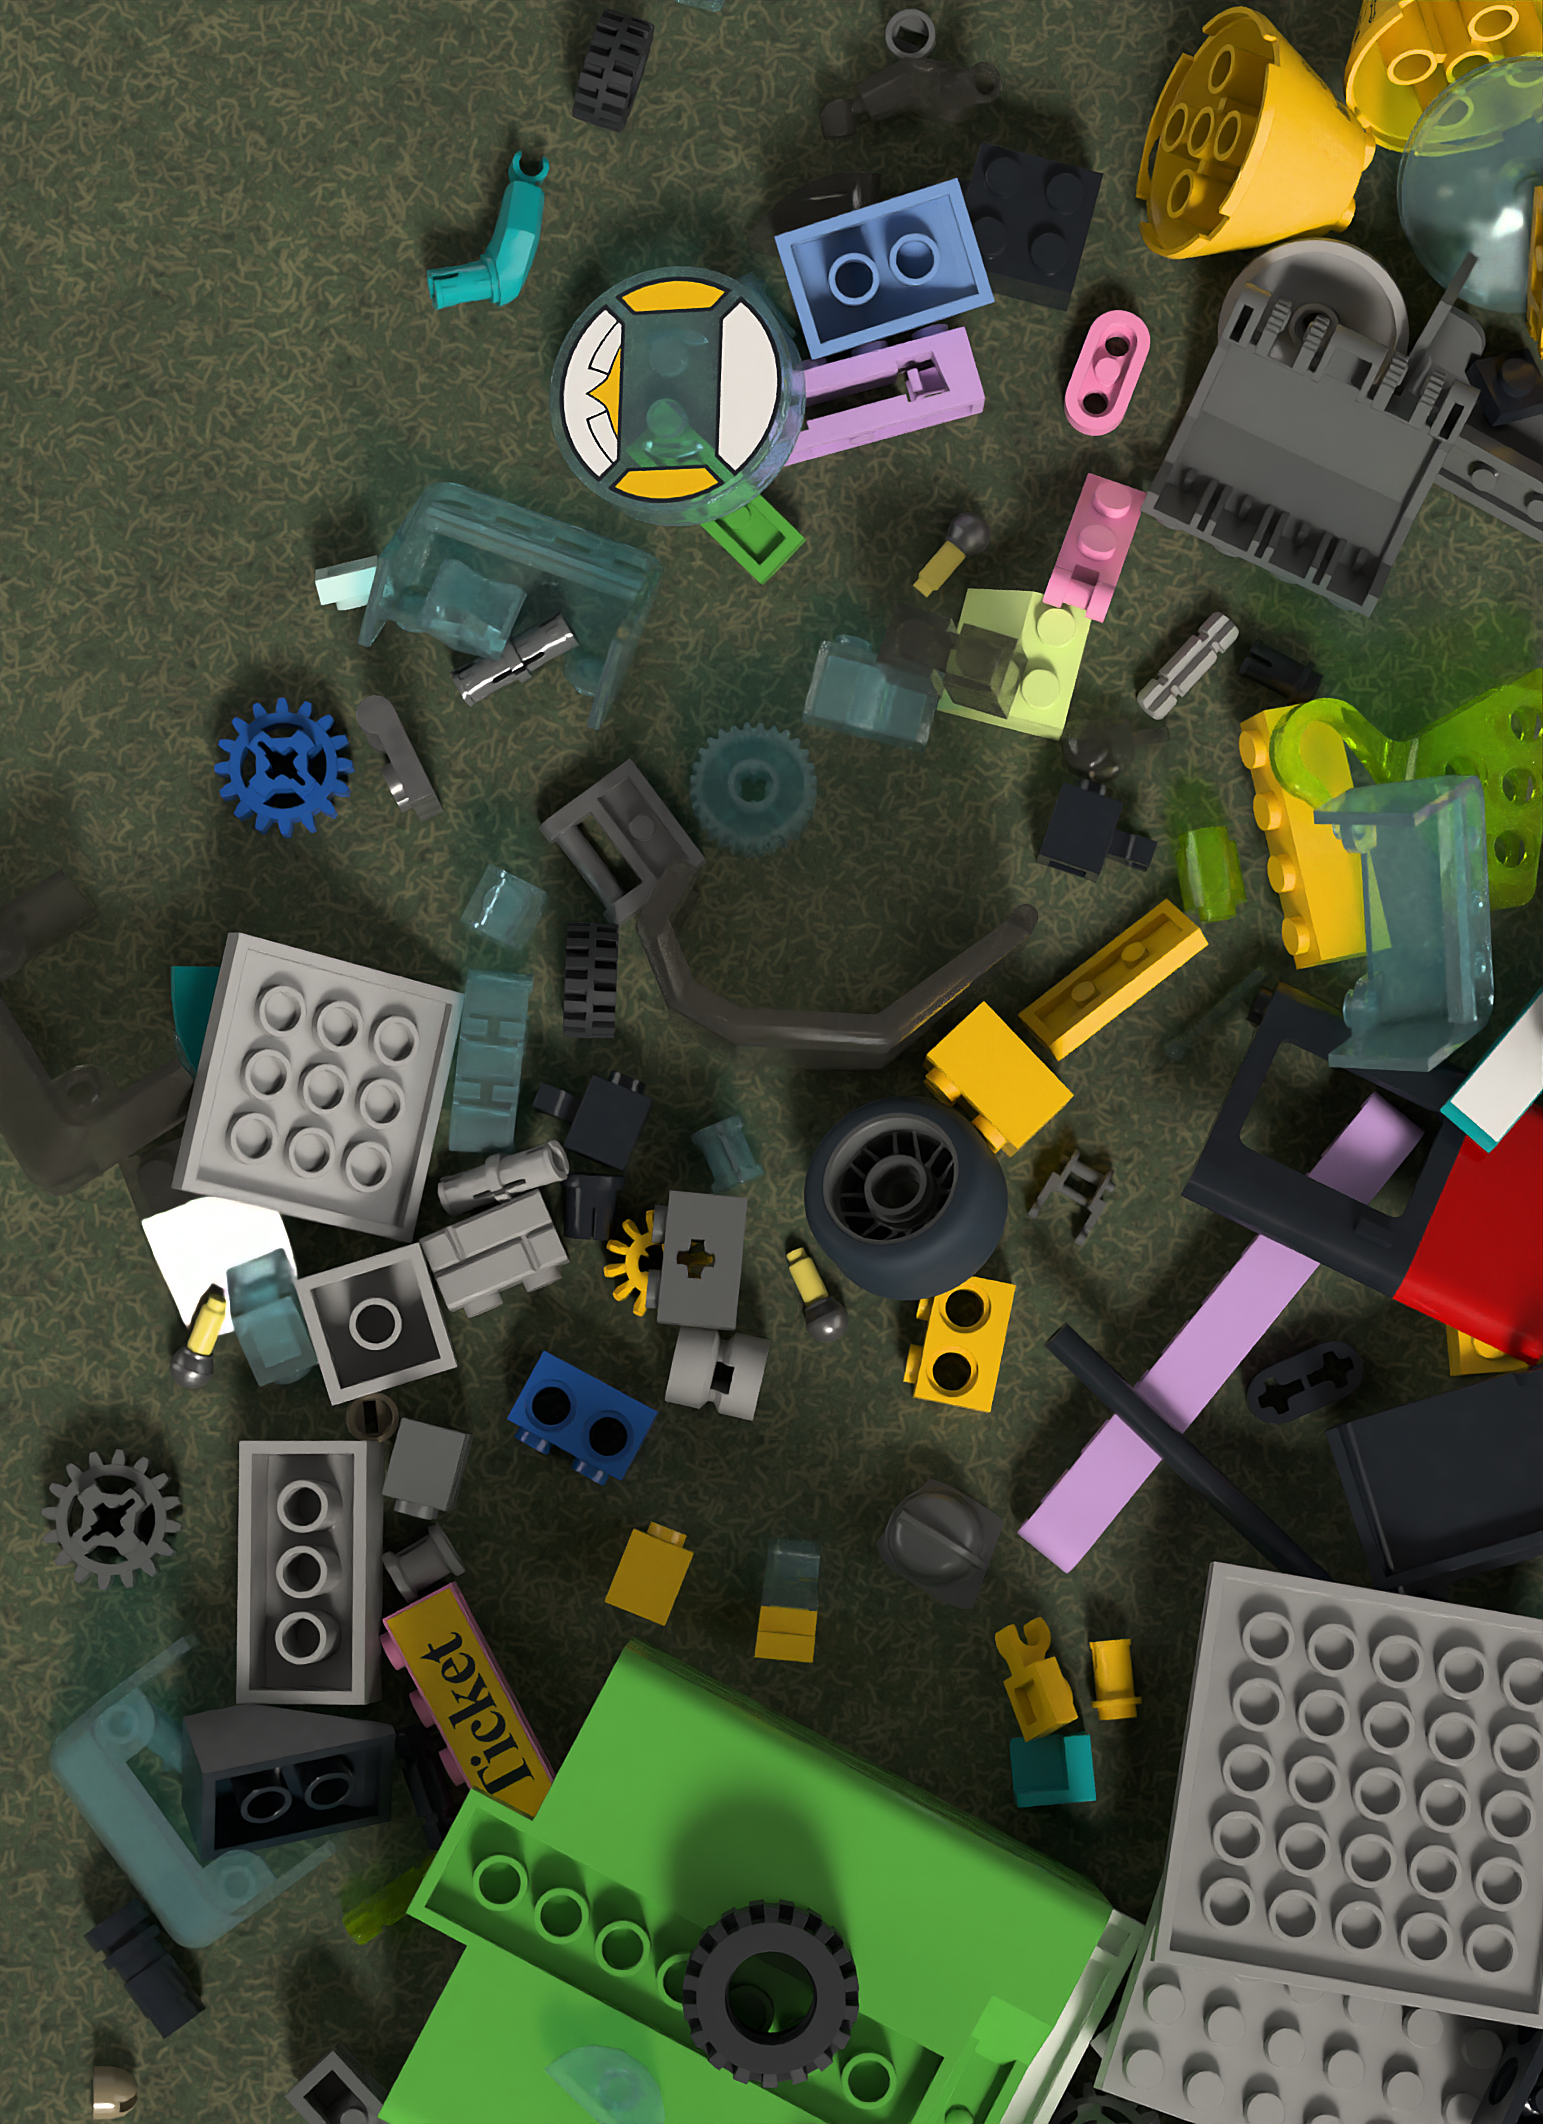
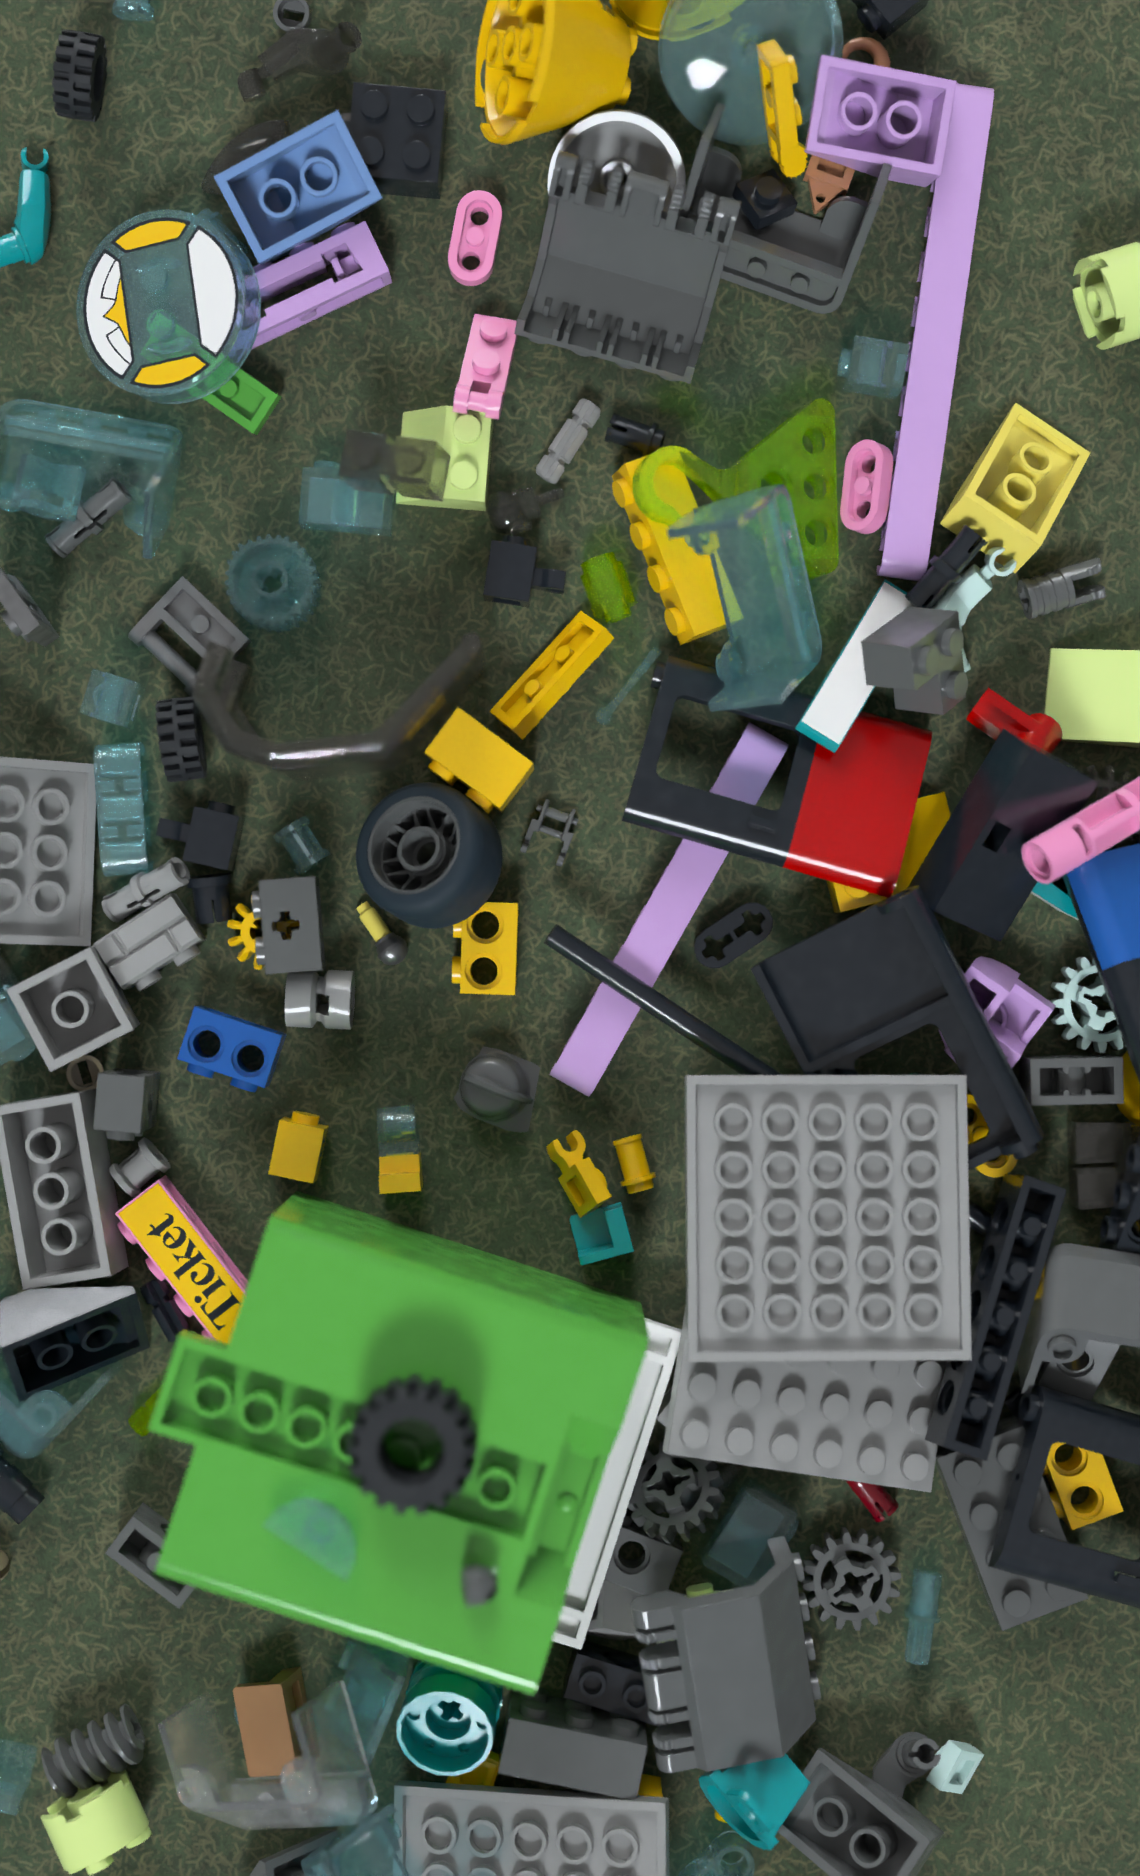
camera: 15 degrees left, 5 degrees up
(965, 537) = (395, 375): piece -> none

